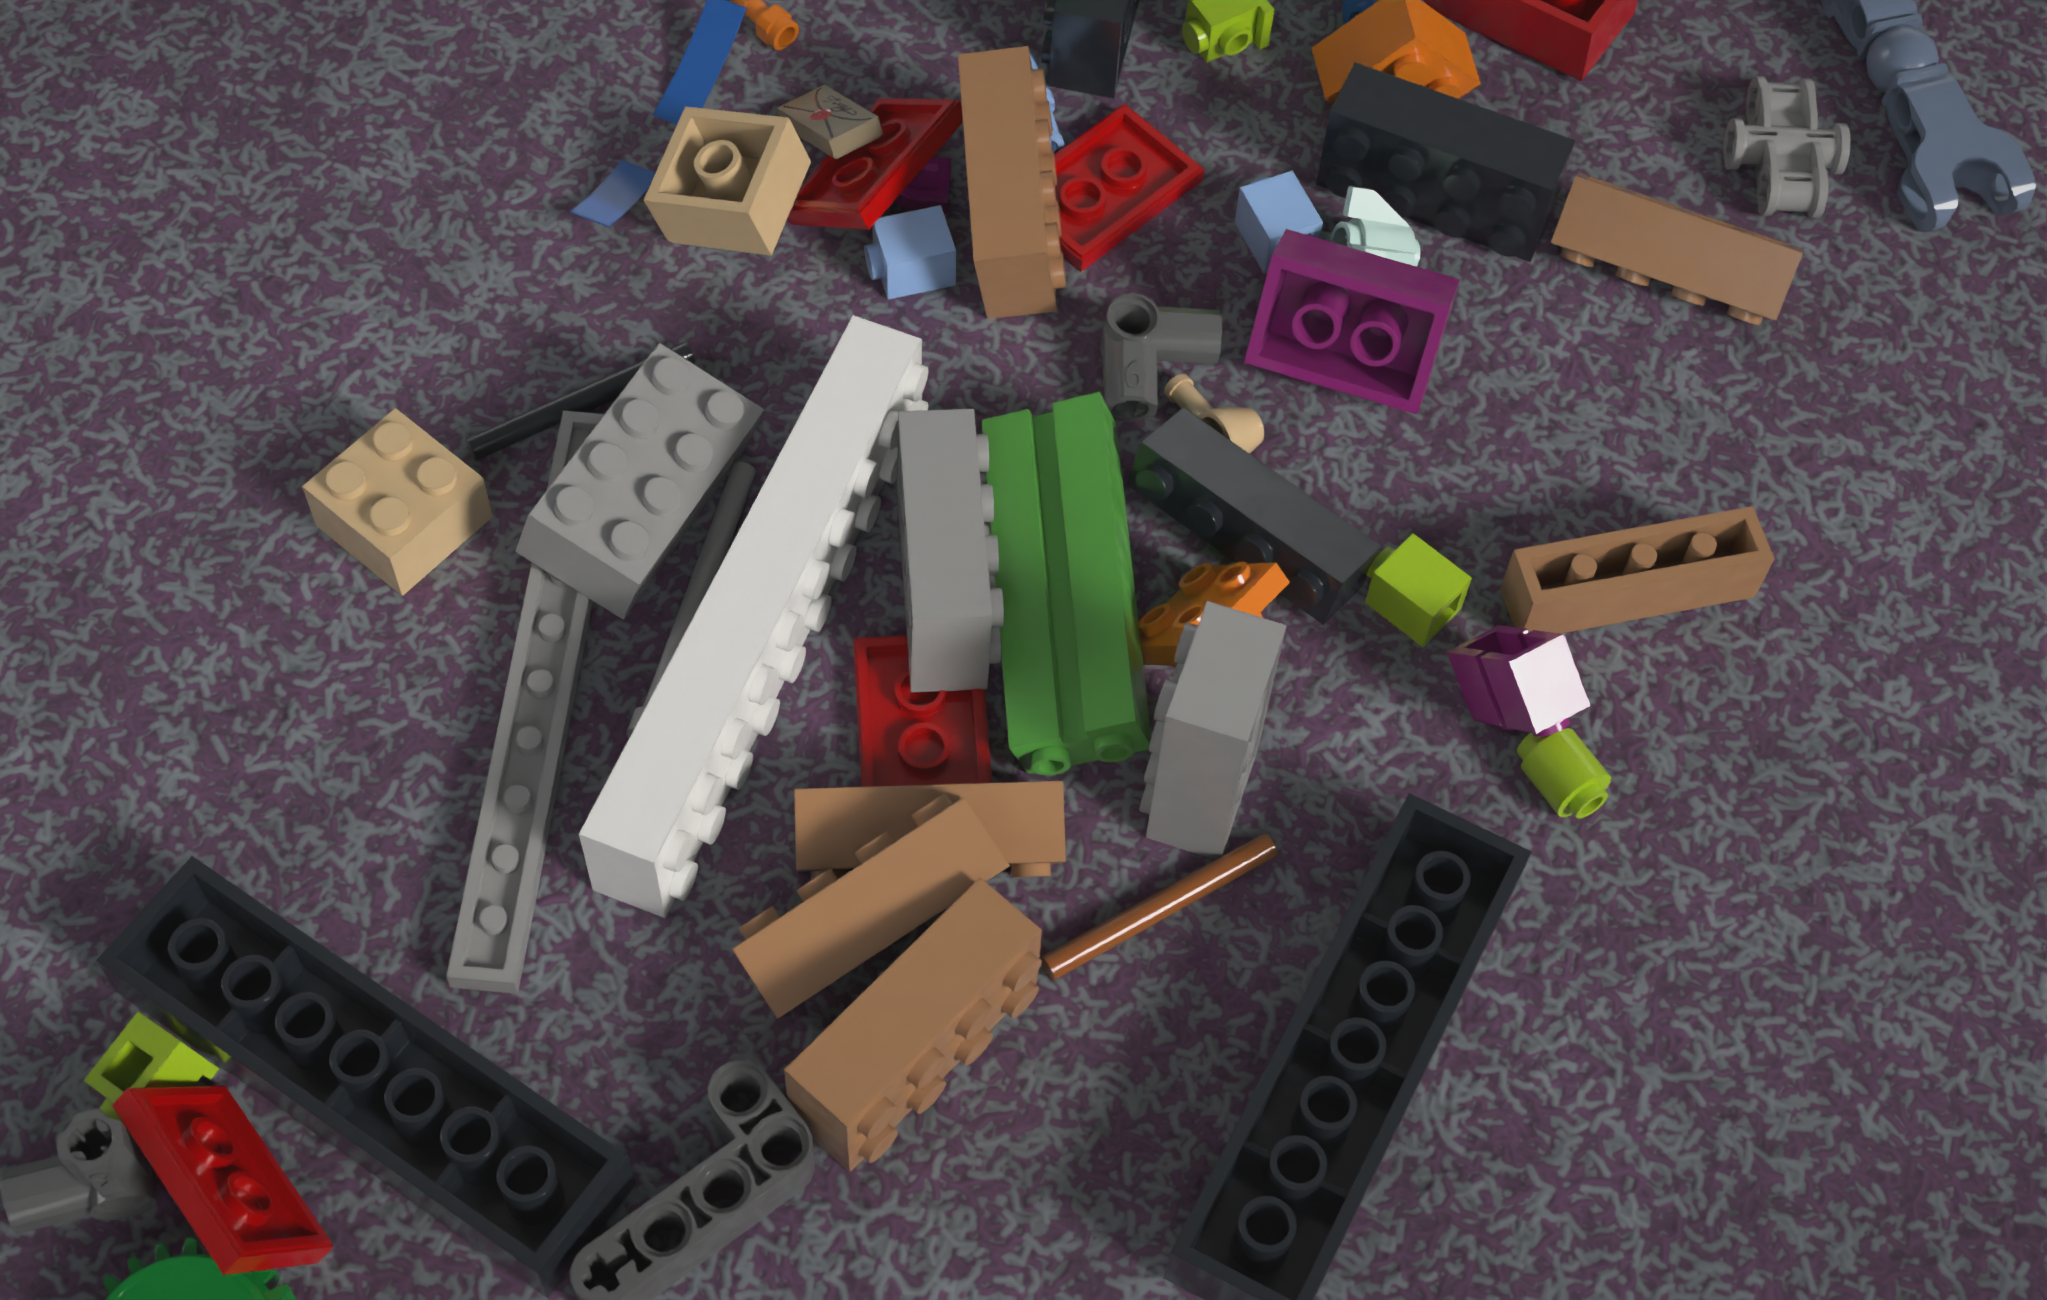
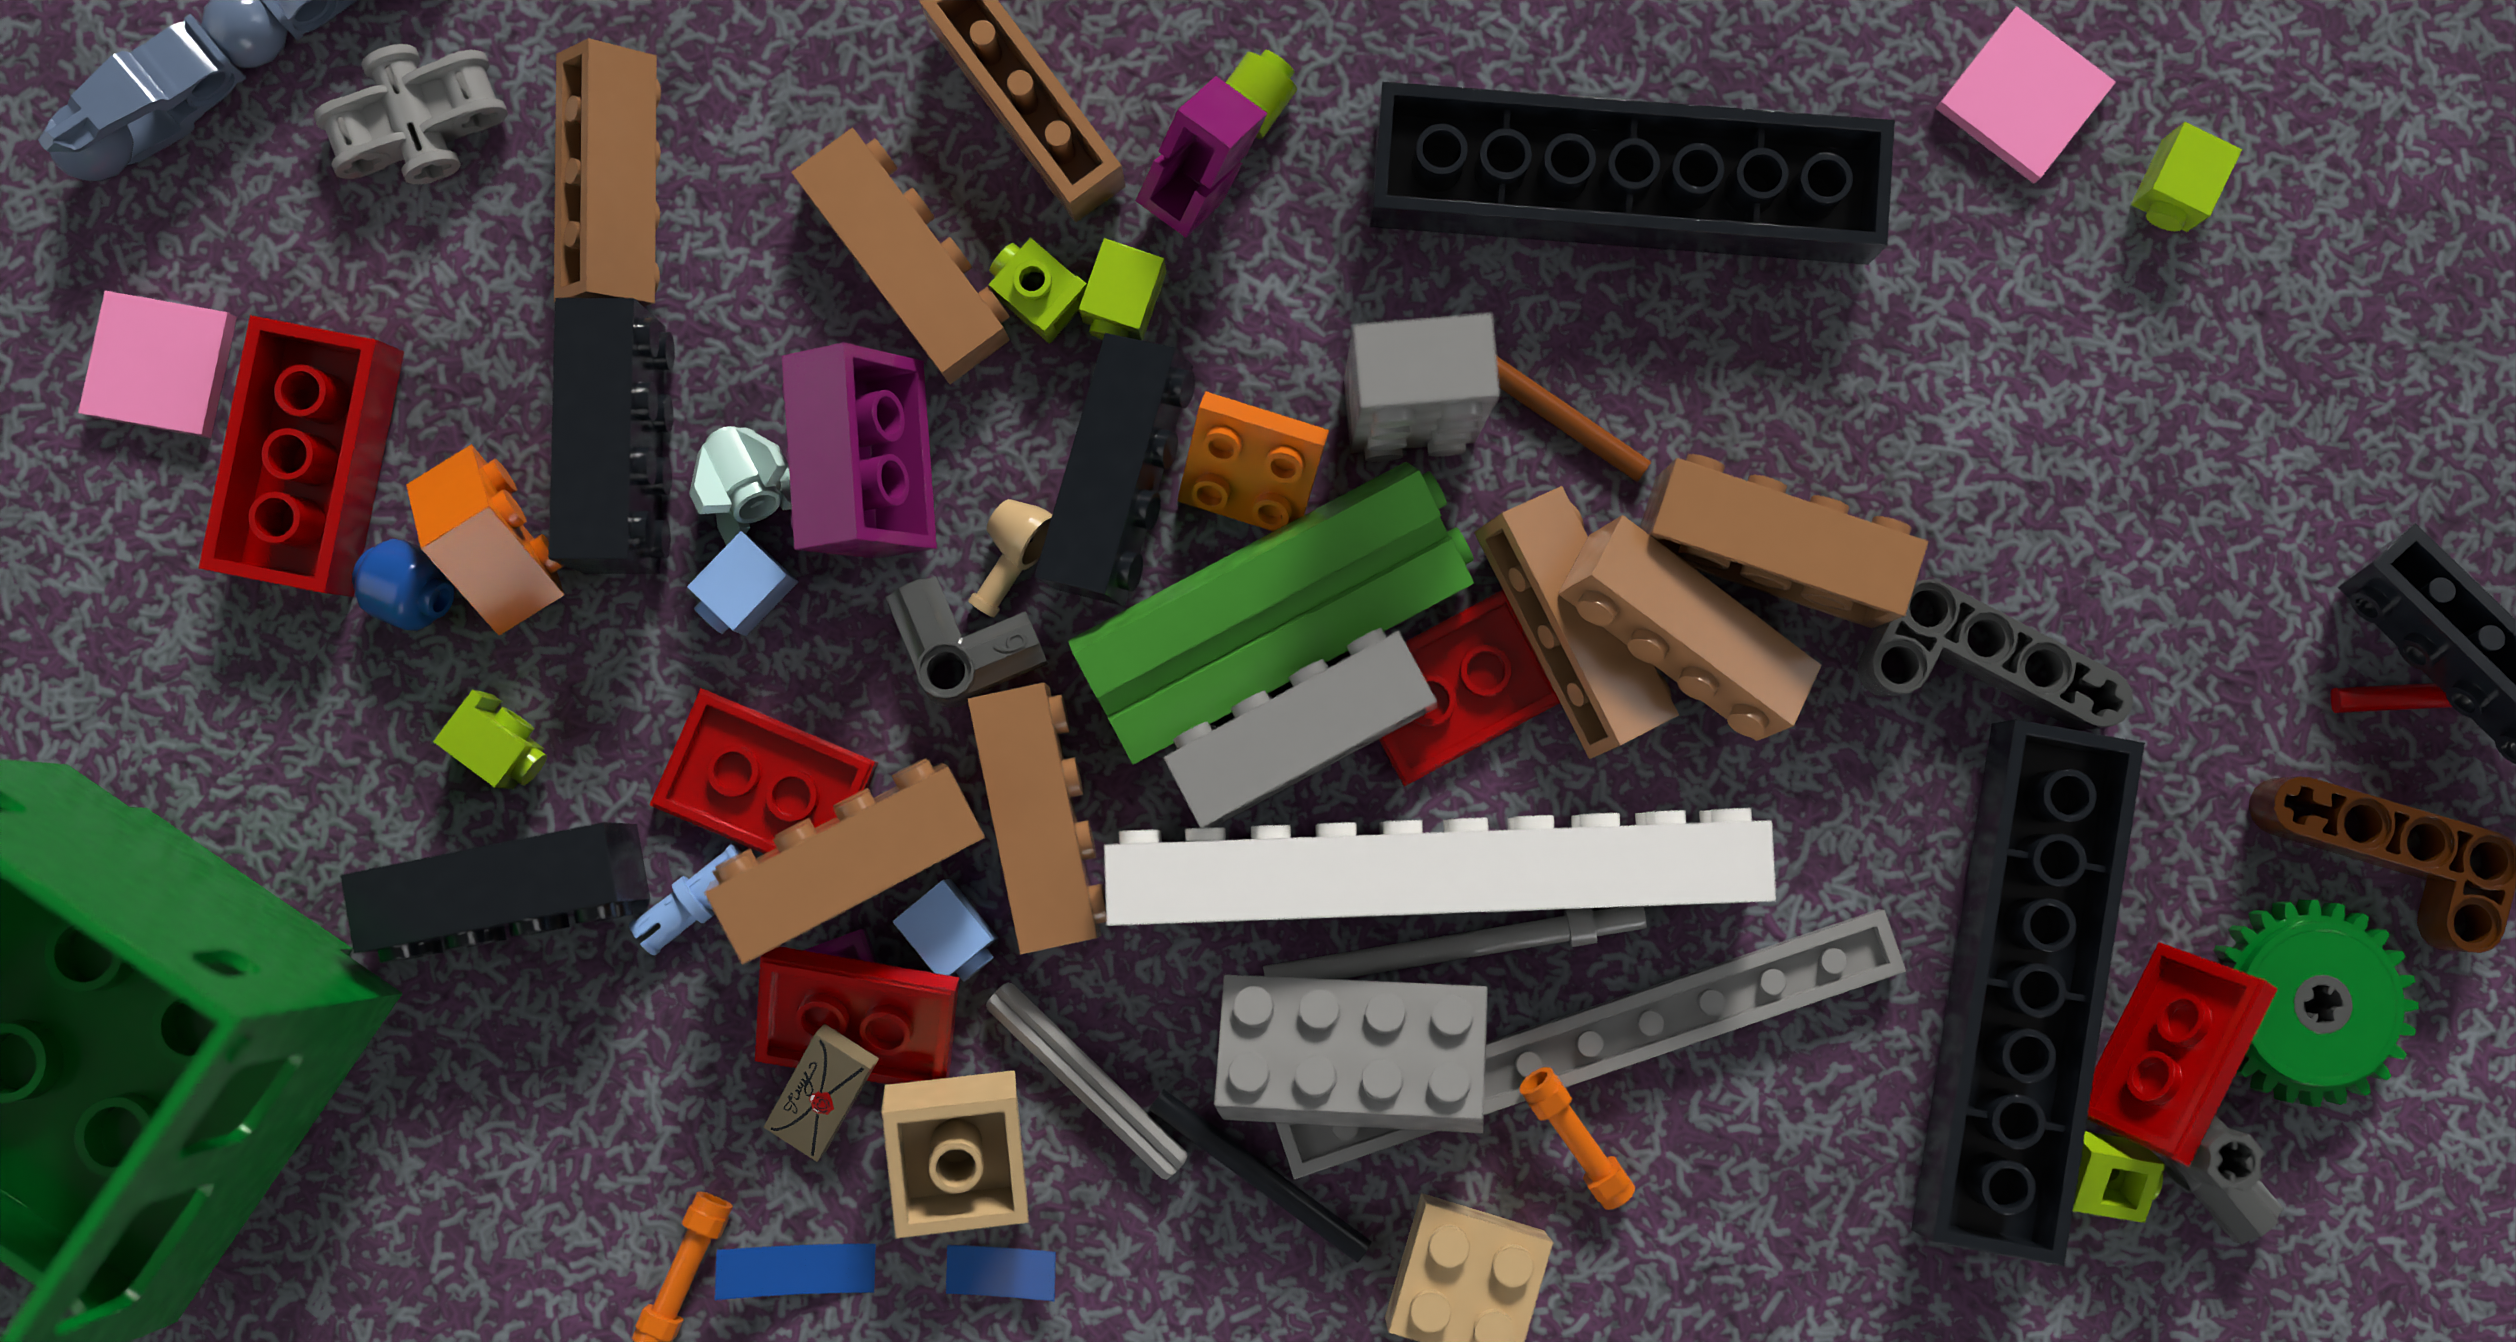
camera: 110 degrees left, 25 degrees up
(414, 650) = (1603, 1174): none -> orange bar
(733, 308) = (1087, 1080): none -> light grey axle
(987, 340) = (1036, 818): none -> medium nougat brick
(1451, 522) = (1048, 307): none -> lime brick
(1520, 436) = (902, 255): none -> medium nougat brick

